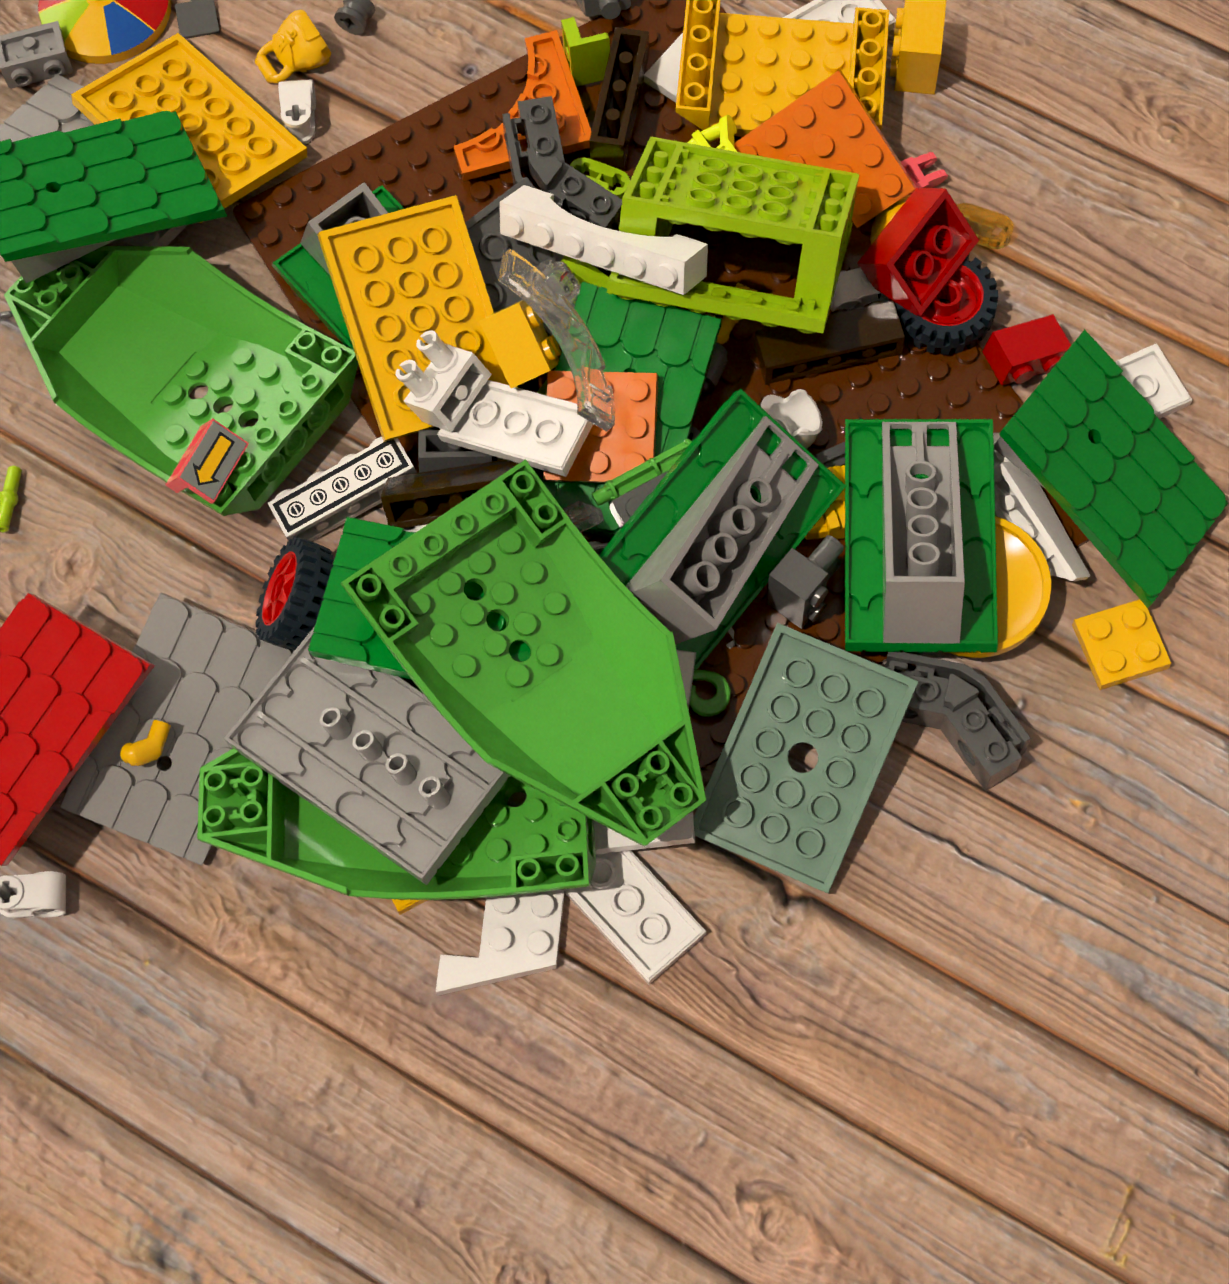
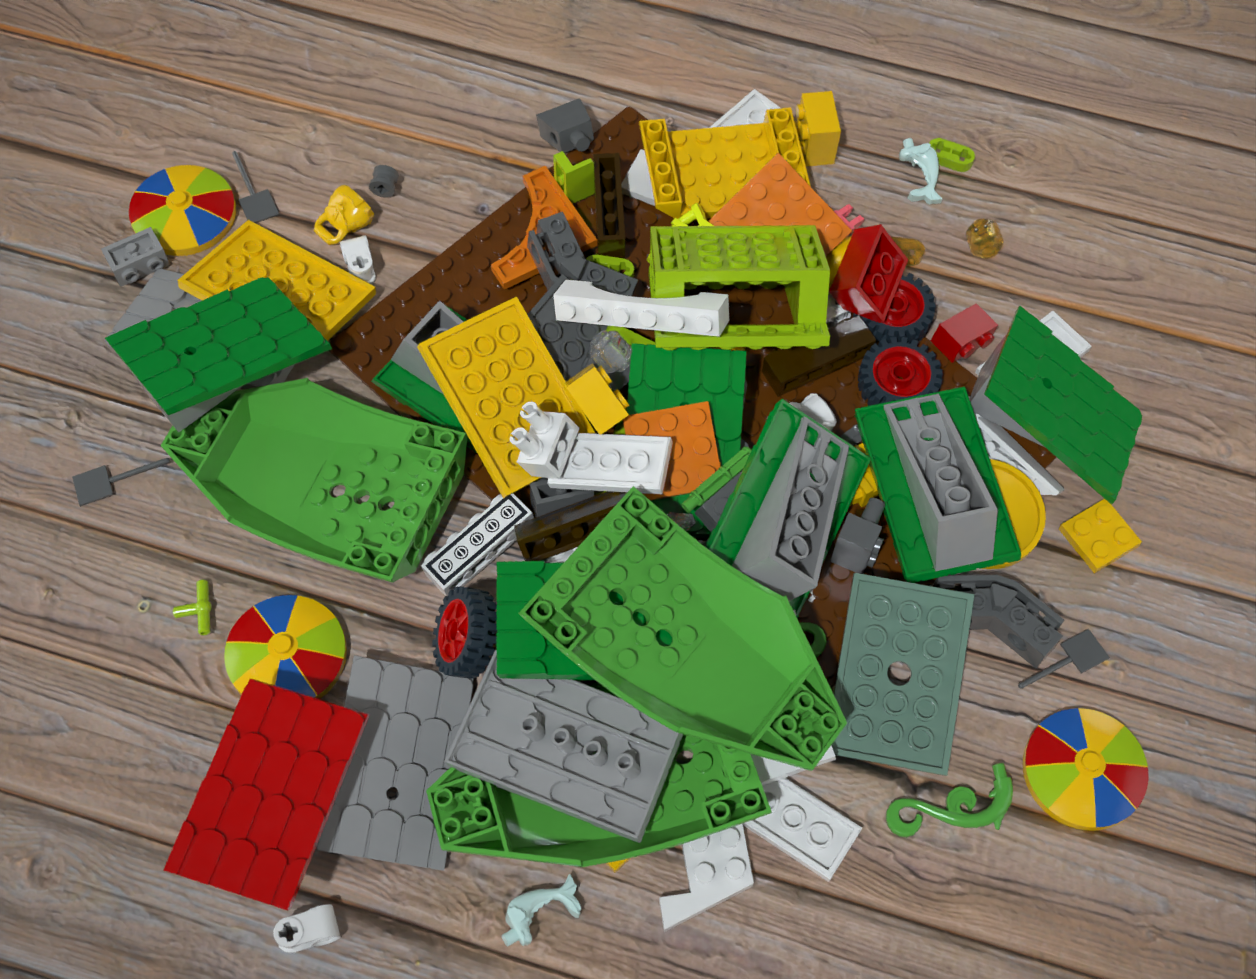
camera: 20 degrees left, 5 degrees down
(93, 566) = (288, 645): none -> dish
(149, 748) = (377, 785): yellow arm -> none
(208, 461) = (369, 541): panel -> none
(280, 927) = (525, 905): none -> light aqua animal
(586, 363) = (637, 383): clear tile -> none
(889, 935) = (953, 815): none -> bright green plant
(926, 367) = (887, 360): none -> wheel
(1005, 925) = (1085, 769): none -> dish
(1050, 782) = (1082, 651): none -> dark grey piece
(1054, 111) = (927, 159): none -> light aqua animal
(1089, 110) = (951, 153): none -> lime beam
(1095, 230) = (984, 238): none -> clear yellow head

